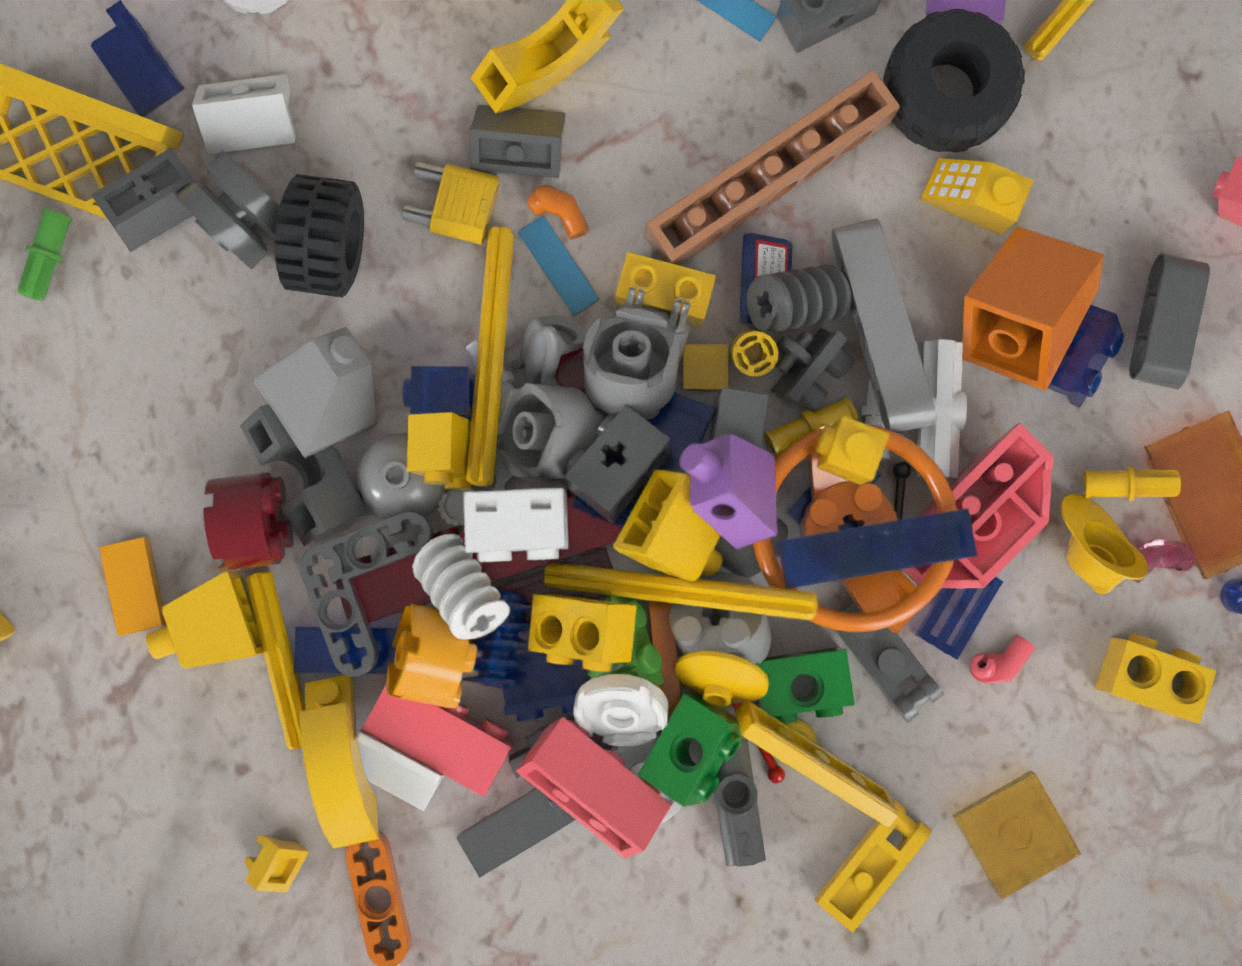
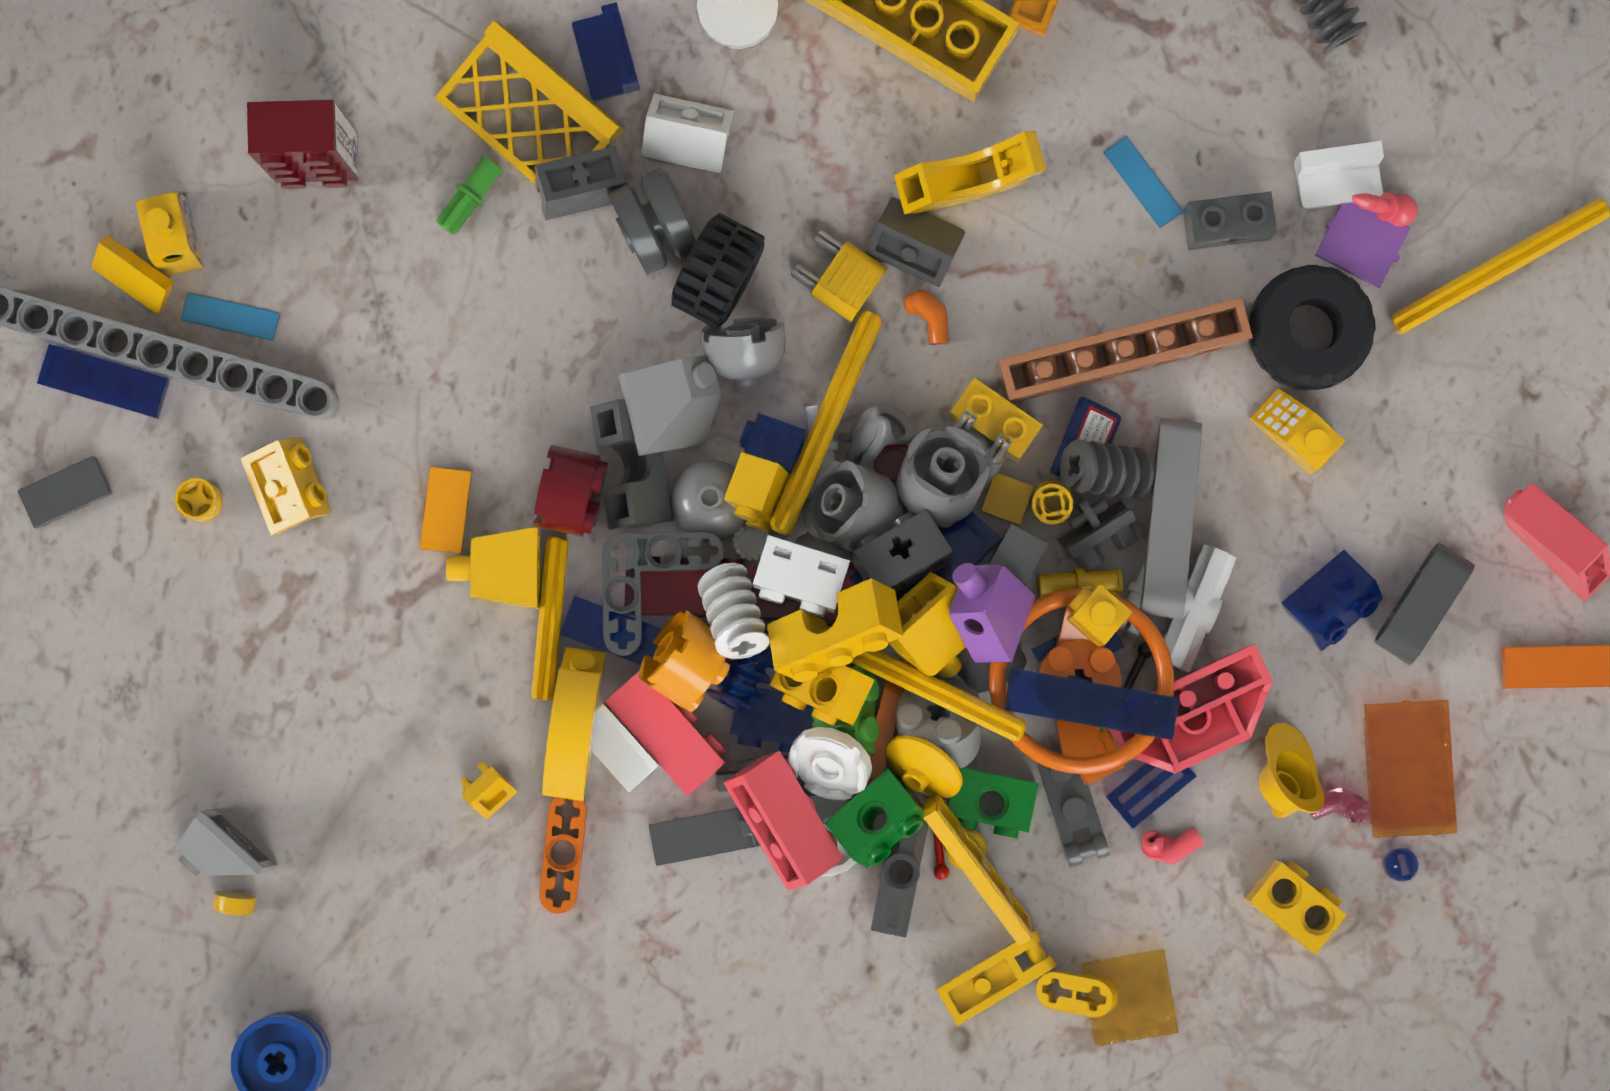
camera: 20 degrees right, 0 degrees up
(380, 310) = (745, 349): none -> light grey cylinder
(558, 265) = (911, 363): dark azure sticker -> none
(602, 551) = (864, 623): none -> yellow arch
(966, 862) = (1074, 1002): none -> yellow beam
(1029, 306) = (1302, 547): orange slope -> none
(1131, 483) = (1338, 731): yellow axle -> none

